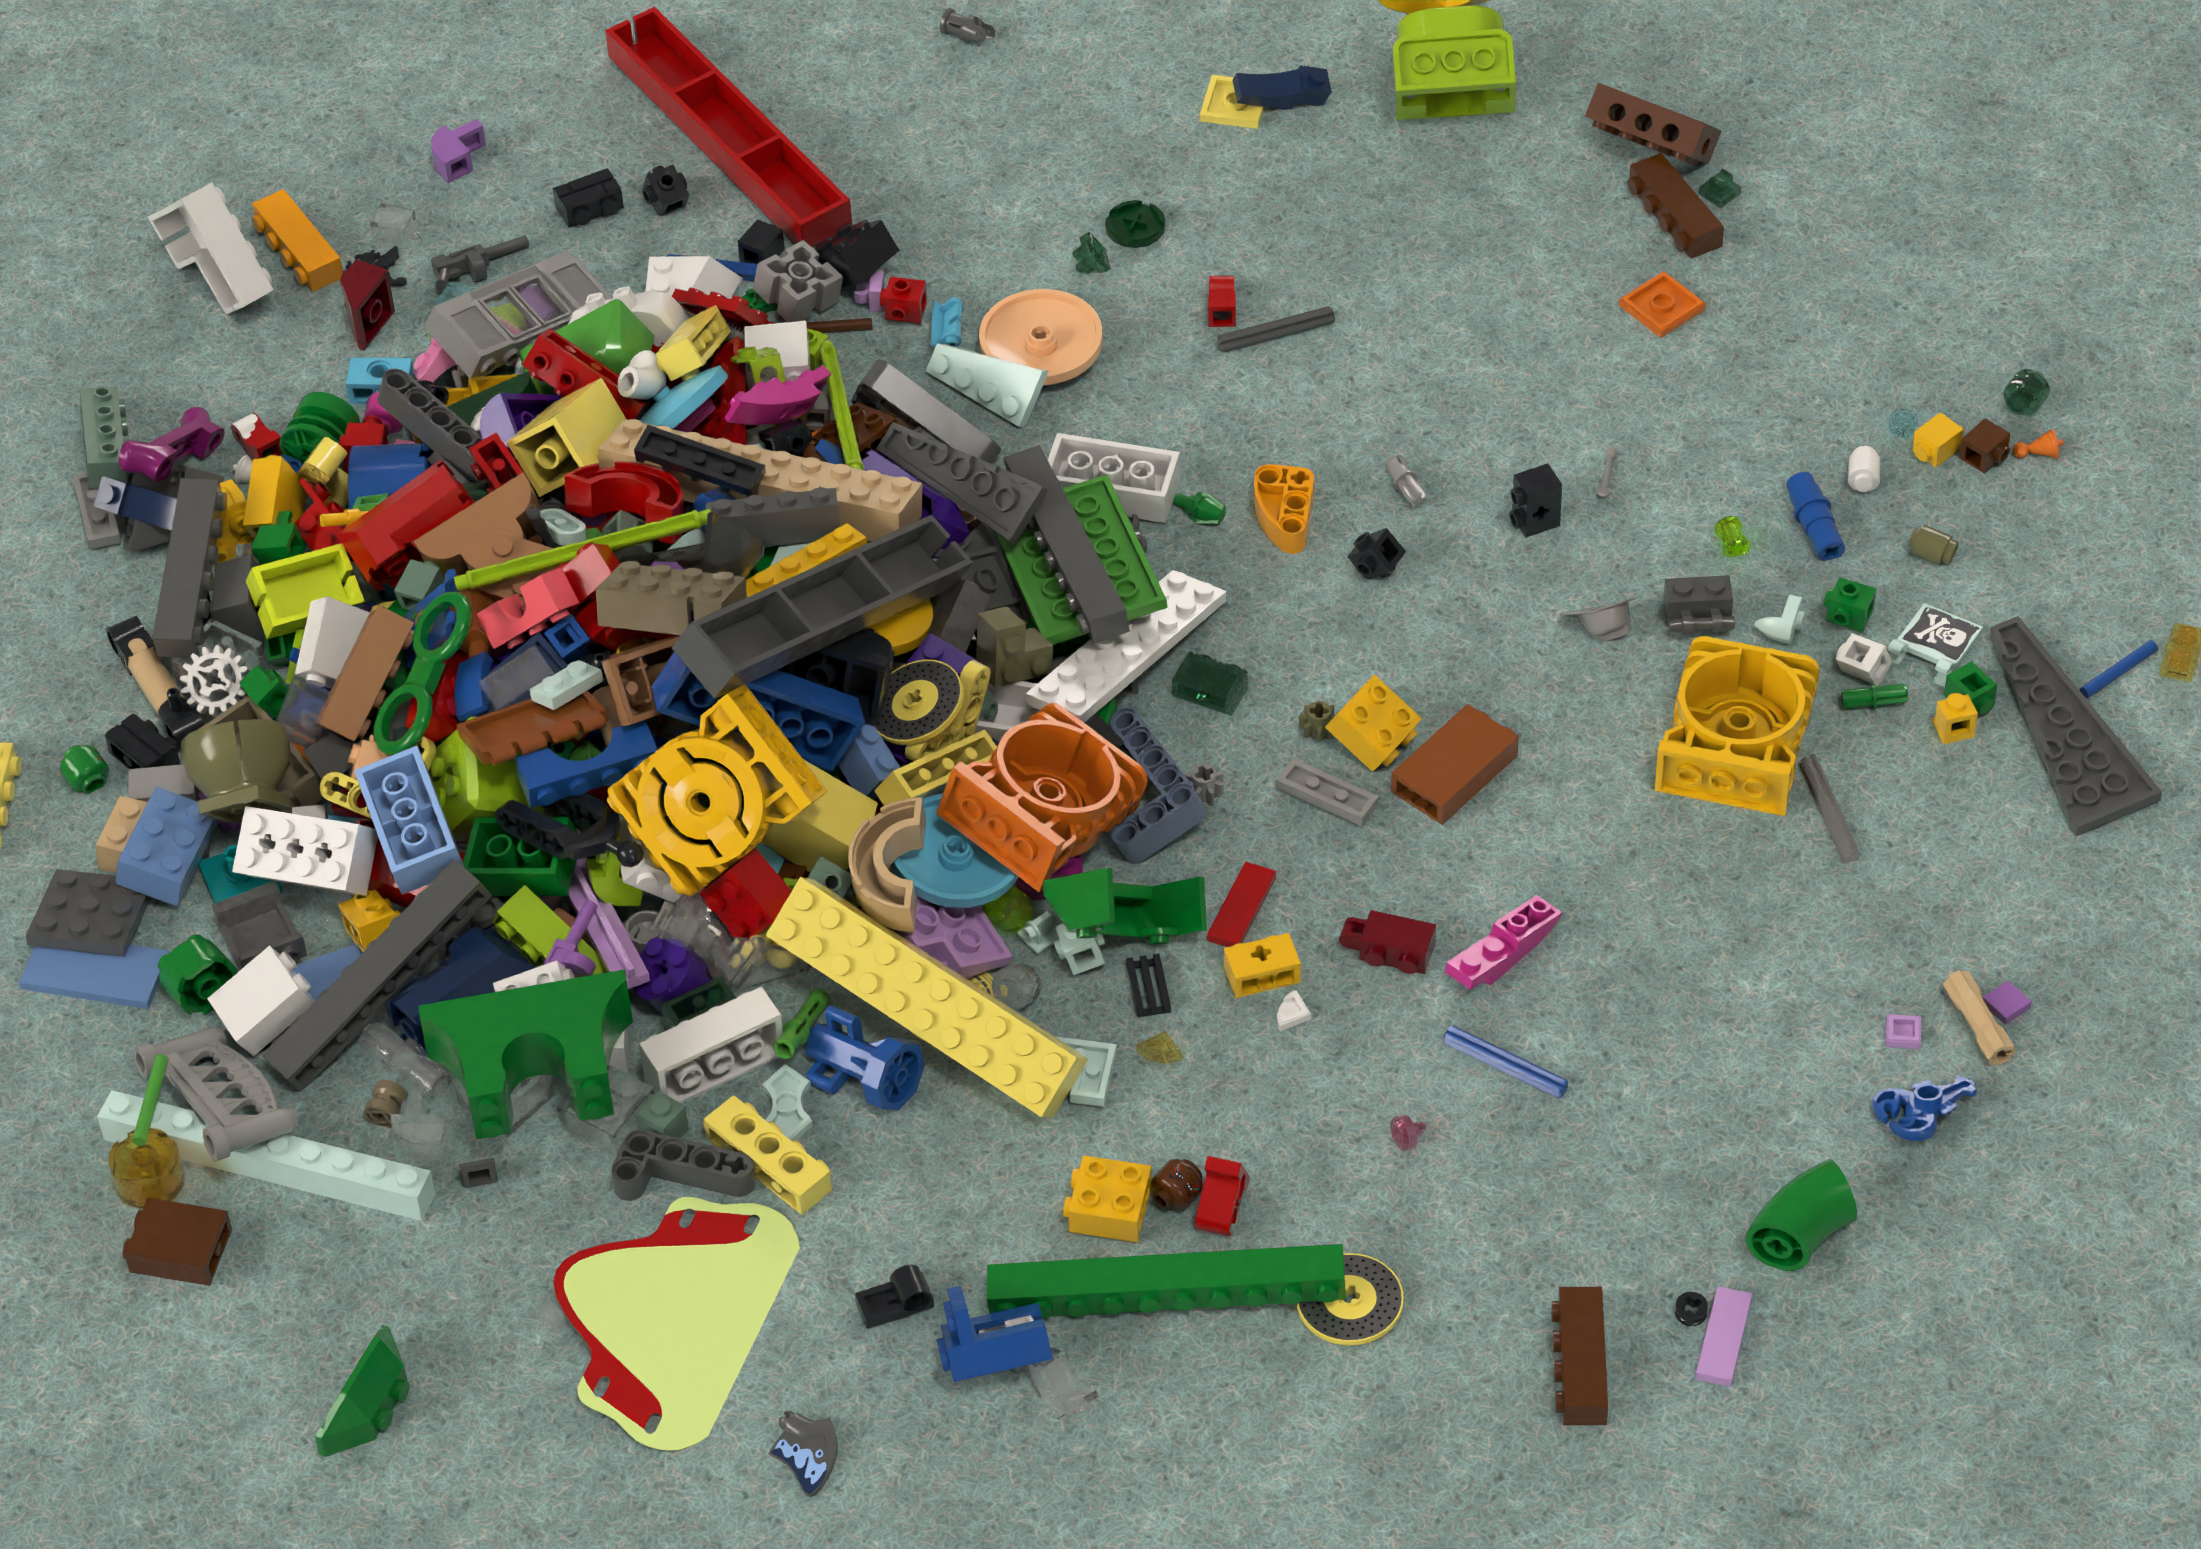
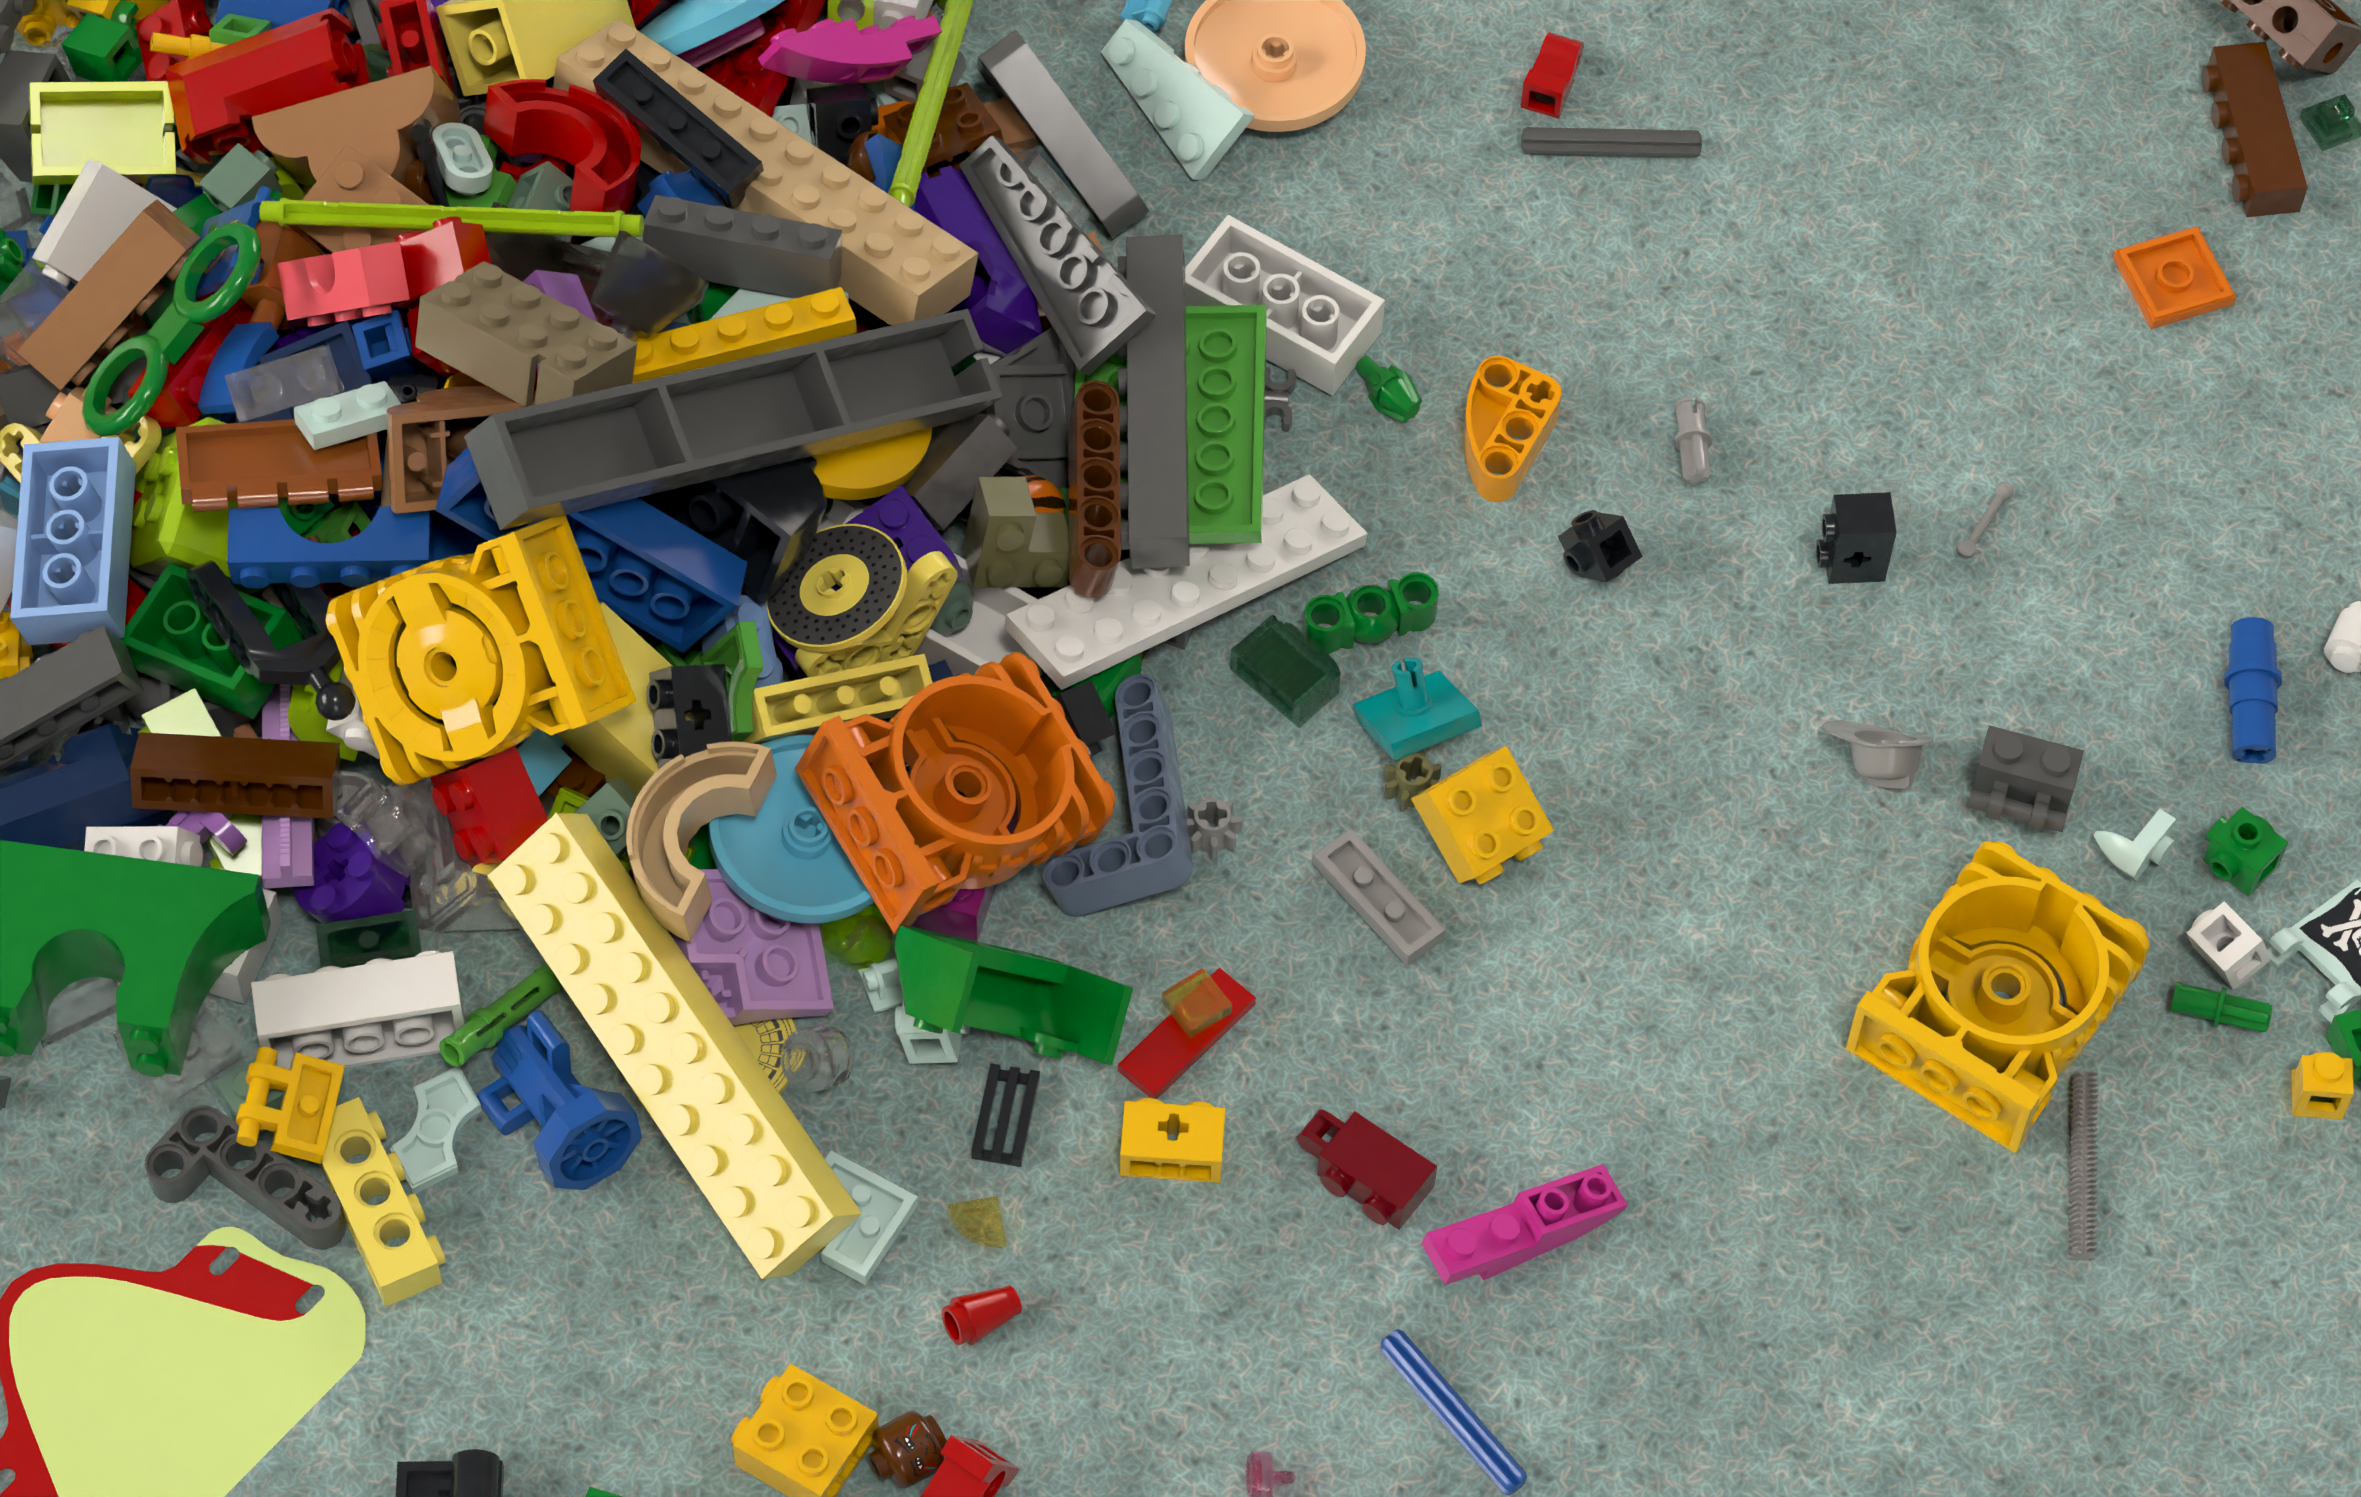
camera: 15 degrees right, 10 degrees up
(576, 925) = (235, 775): none -> reddish brown brick
(705, 1107) = (306, 1106): none -> yellow plate
(854, 796) = (689, 692): none -> black brick
(874, 770) = (743, 663): none -> bright green tile
(1050, 604) = (1094, 489): none -> reddish brown beam
(1185, 1098) = (980, 1313): none -> red cone
(1242, 881) = (1196, 1002): none -> clear yellow plate
(1250, 633) = (1389, 604): none -> green piece
(1292, 1011) = (1187, 1225): white tile -> none
(1304, 680) = (1416, 711): none -> teal tile
(1454, 764) = (1575, 914): dark orange brick -> none
(1730, 532) = (2120, 682): clear neon green bush -> none

